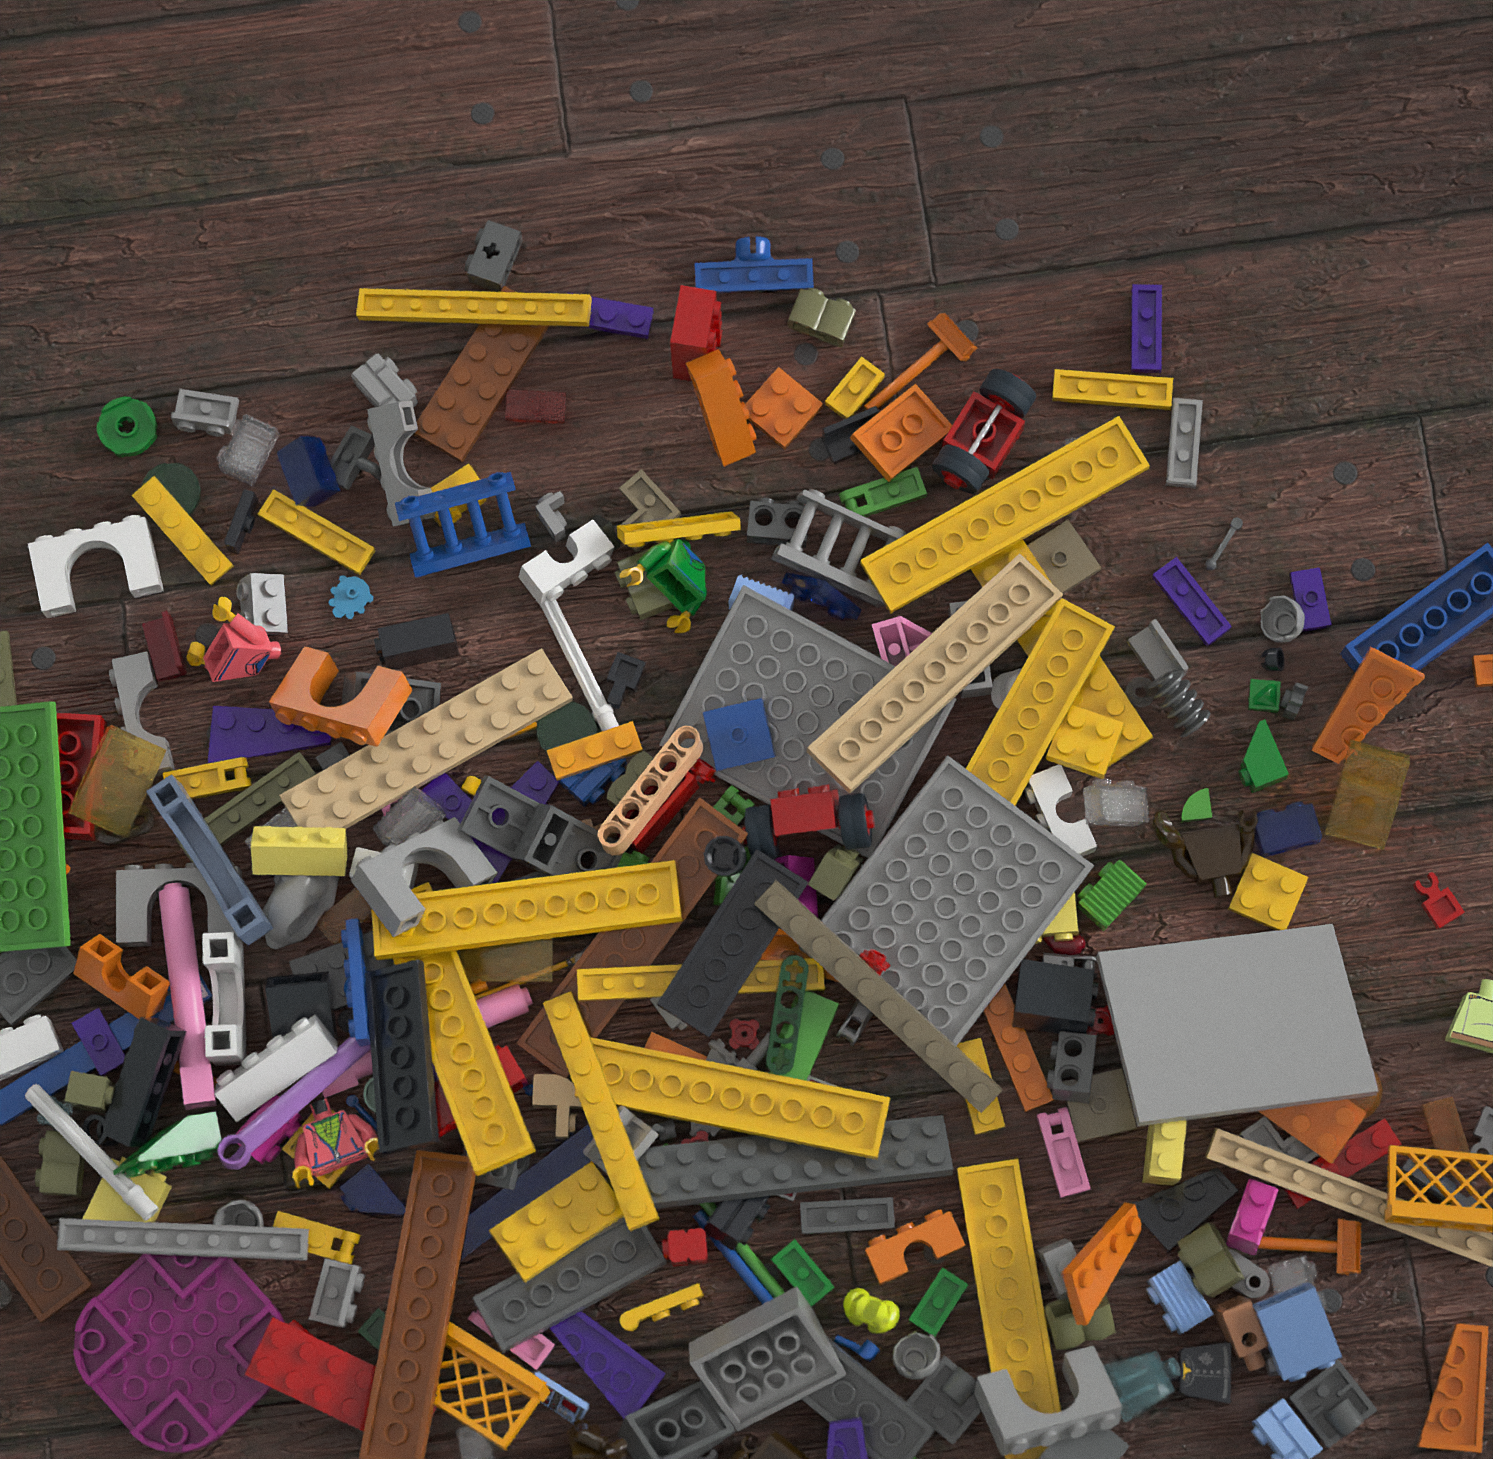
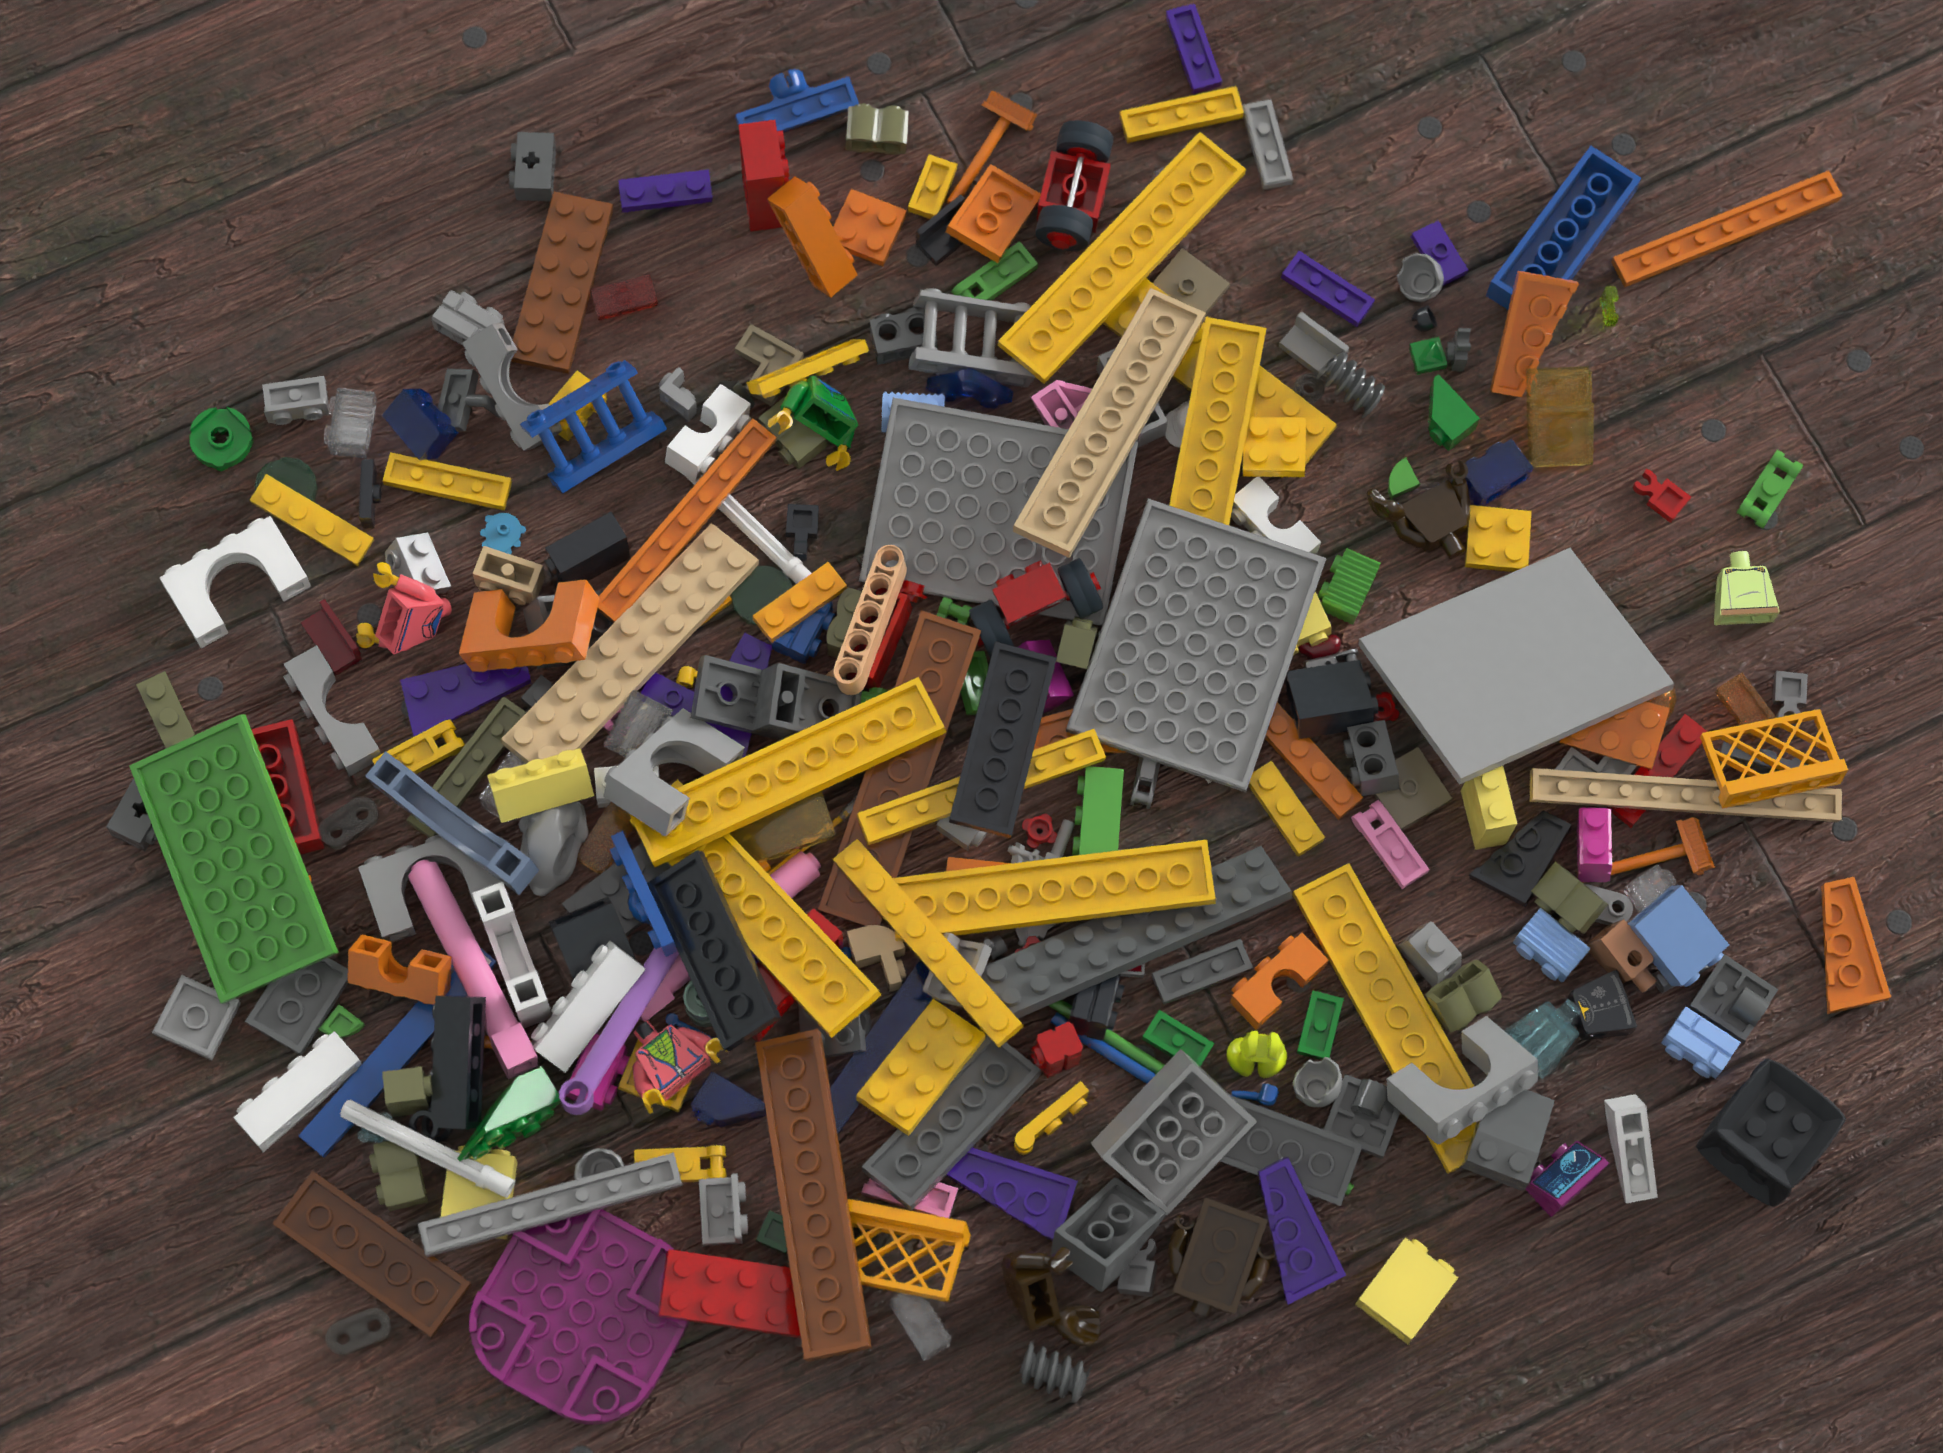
camera: 25 degrees left, 5 degrees down
(57, 1007) = (342, 1023): none -> bright green tile
(99, 1042) = (397, 1040): dark purple plate -> none
(117, 780) = (331, 776): clear yellow slope -> none
(341, 640) = (514, 575): none -> tan brick
(474, 307) = (532, 218): yellow plate -> none
(517, 639) = (685, 520): none -> orange plate
(563, 1401) = (987, 1242): slope -> none
(725, 856) = (967, 655): black wheel -> none
(739, 734) = (936, 543): blue plate -> none
(791, 1015) = (1083, 792): dark green beam -> none
(875, 960) = (1145, 716): red plate -> none
(878, 996) = (1162, 745): dark tan plate -> none
(1099, 1261) = (1465, 931): orange wing -> none
(1115, 804) = (1324, 497): clear brick -> none
(1235, 524) = (1343, 205): dark grey hinge -> none
(1455, 695) = (1607, 301): none -> clear neon green tile

